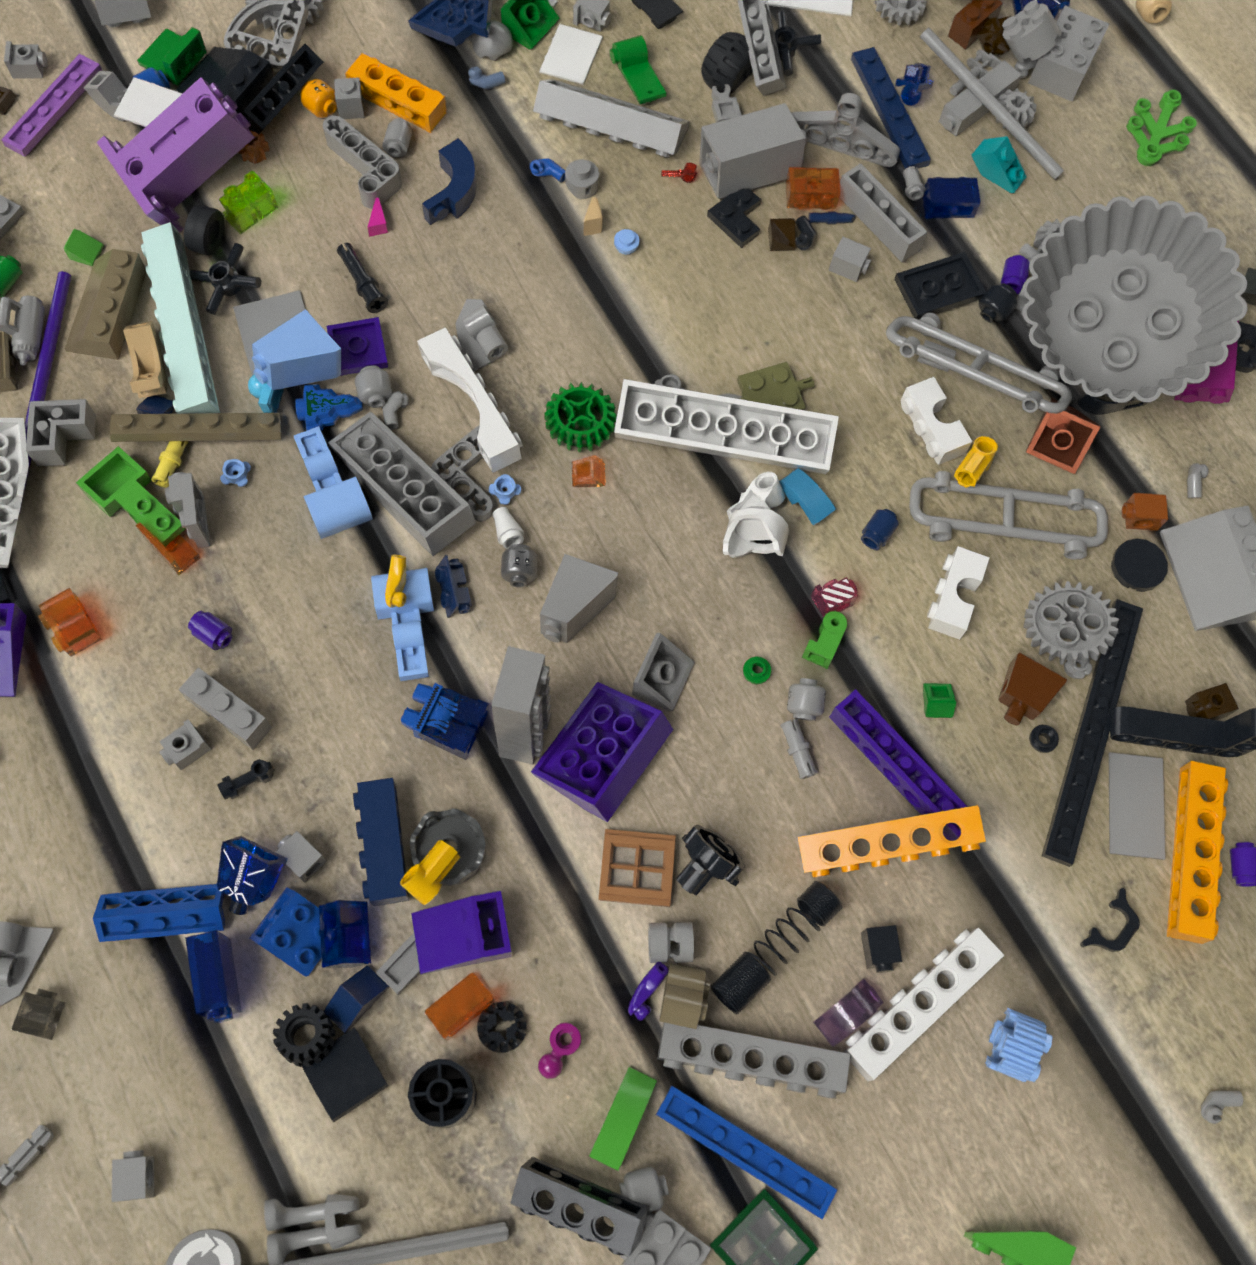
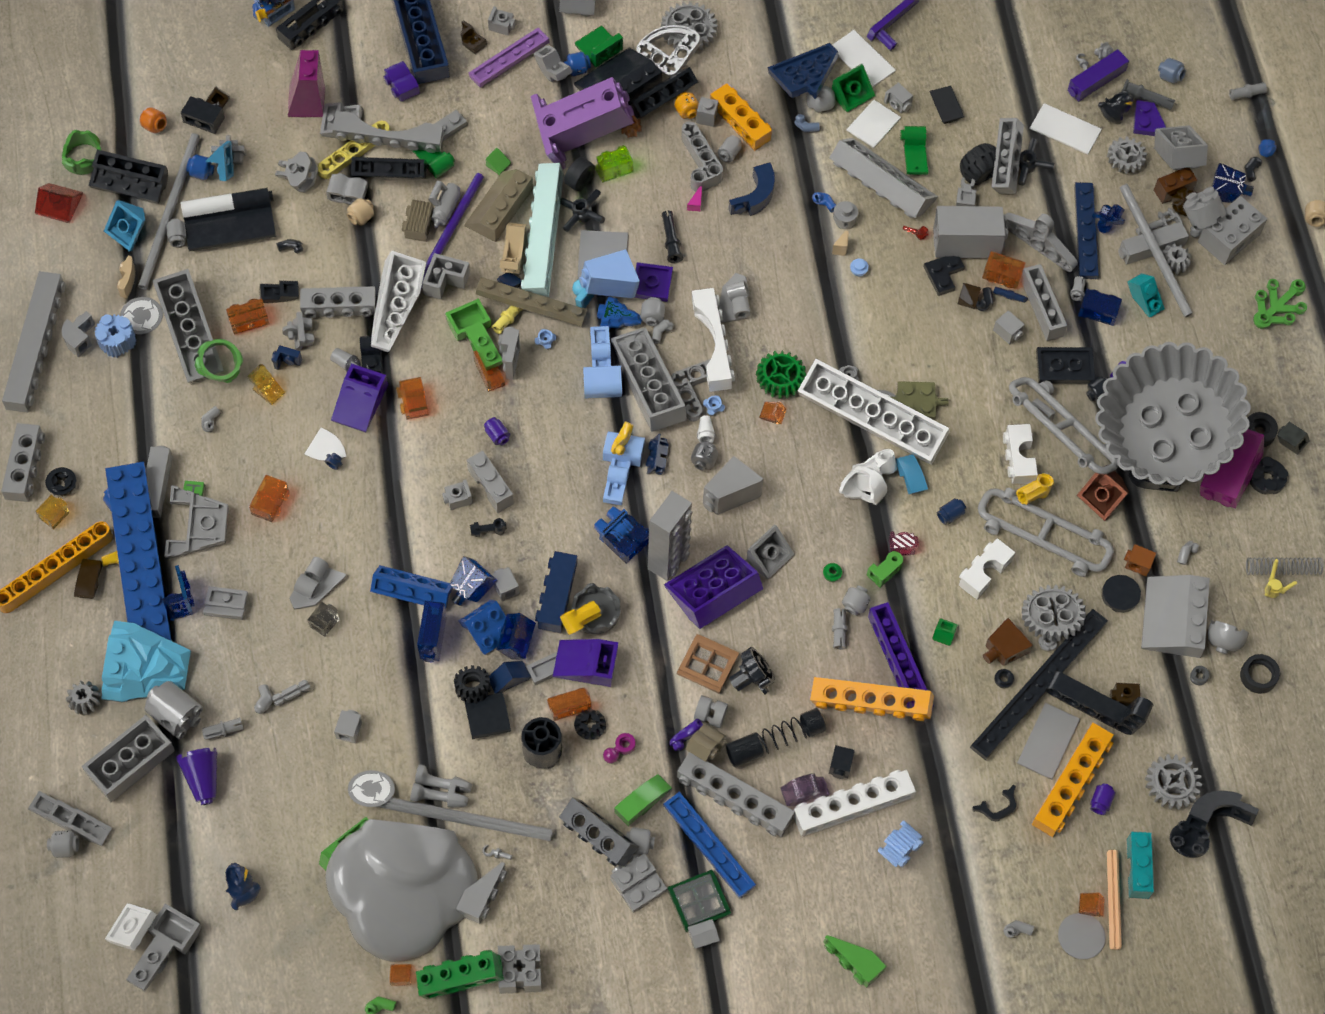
camera: 25 degrees right, 5 degrees down
(144, 102) = (572, 78): white window -> none

